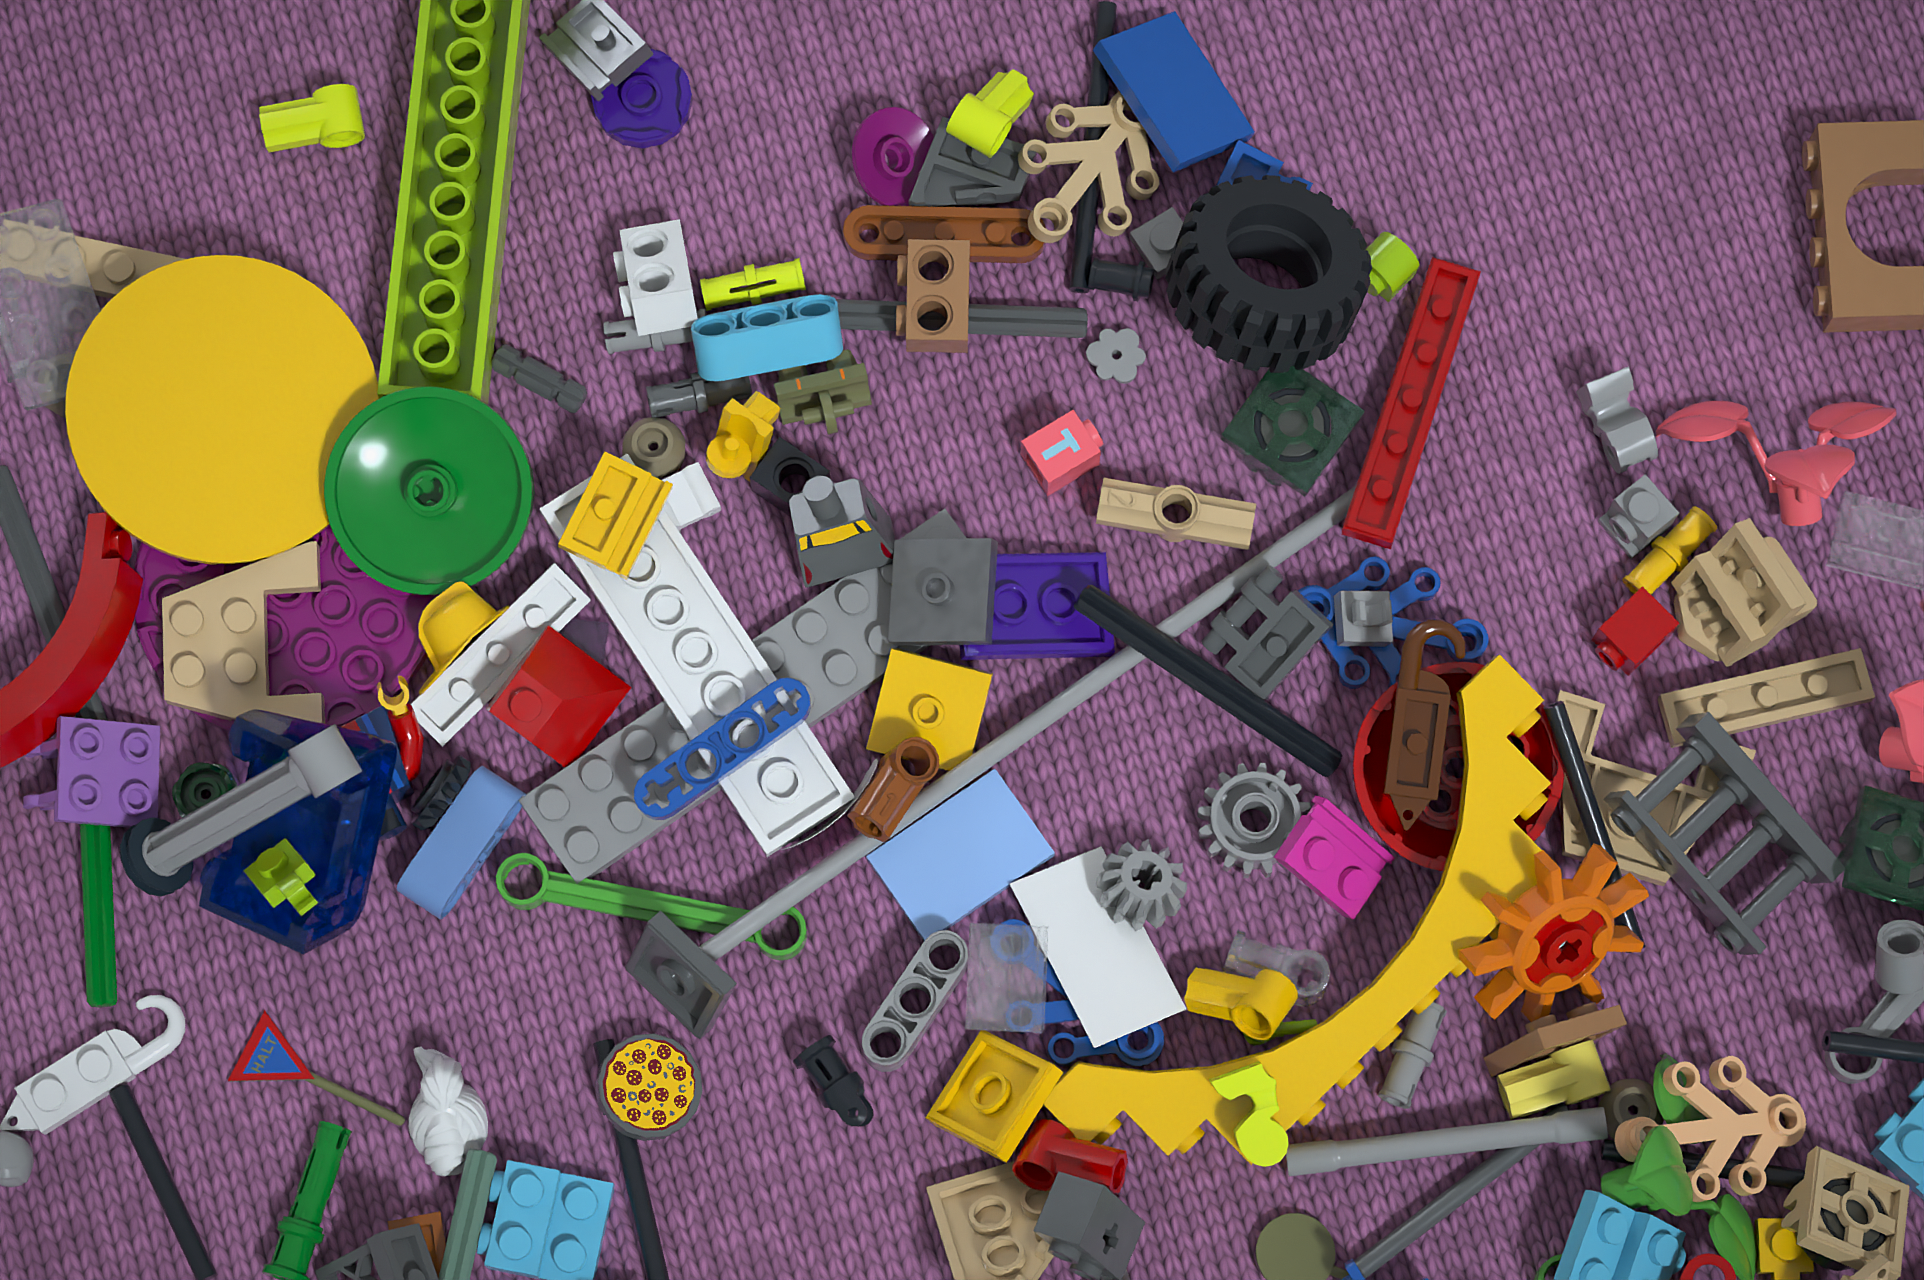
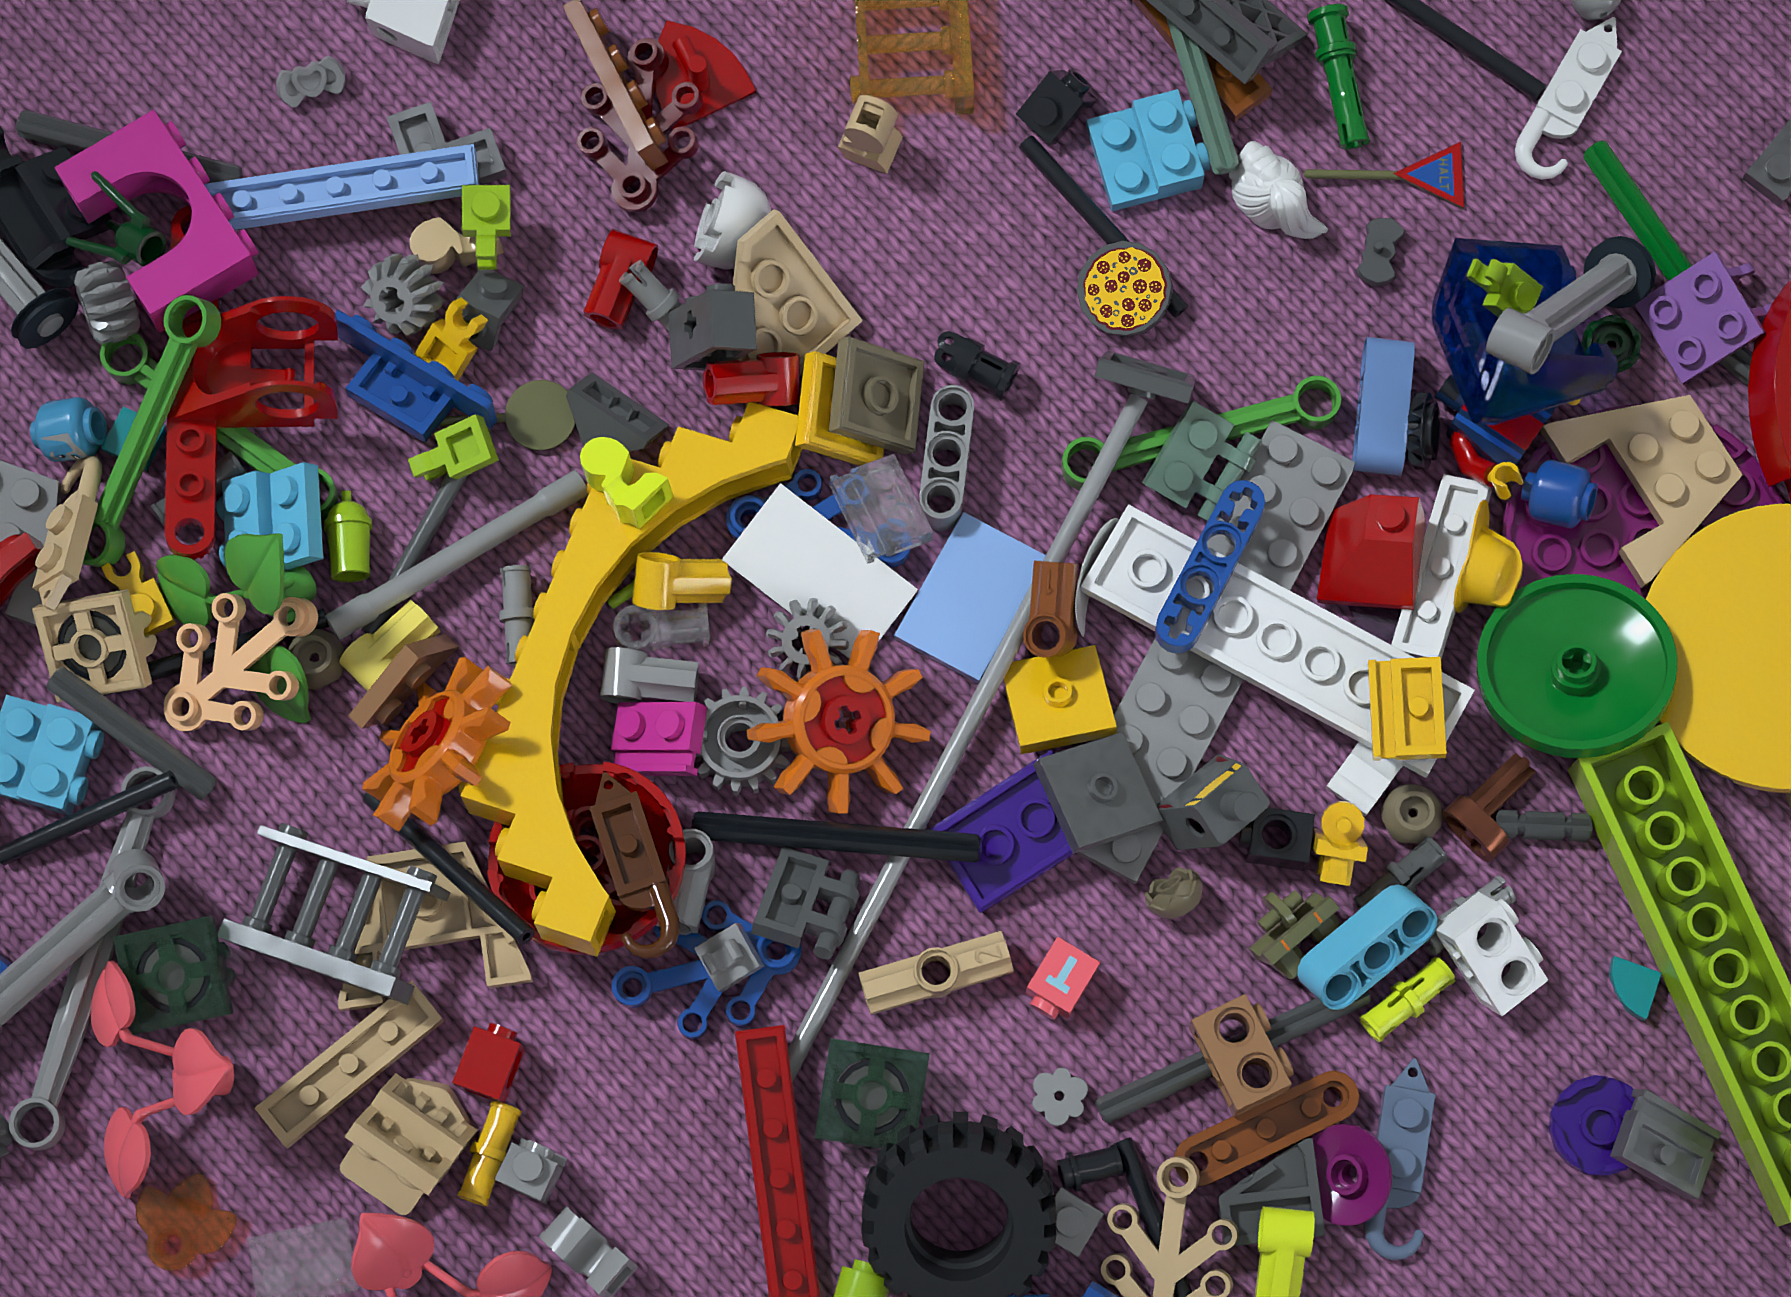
camera: 155 degrees right, 0 degrees up
(346, 663) = (1560, 494): none -> blue head
(374, 1004) = (1379, 252): none -> dark grey piece
(539, 199) = (1633, 986): none -> teal tile
(600, 417) = (1471, 816): none -> copper piece
(677, 884) = (1191, 451): none -> sand green plate
(827, 163) = (1405, 1135): none -> sand blue plate
(915, 479) = (1174, 895): none -> dark tan plate
(953, 1093) = (876, 396): none -> dark tan tile
(1152, 784) = (815, 705): none -> orange gear
(1225, 1210) = (609, 413): none -> dark grey slope
(1314, 925) = (636, 677): none -> light grey piece
(1376, 682) = (695, 882): none -> light grey piece
(1395, 1244) = (461, 451): none -> lime plate
(1547, 1214) = (348, 540): none -> lime piece
(1848, 1113) = (130, 732): none -> dark grey axle

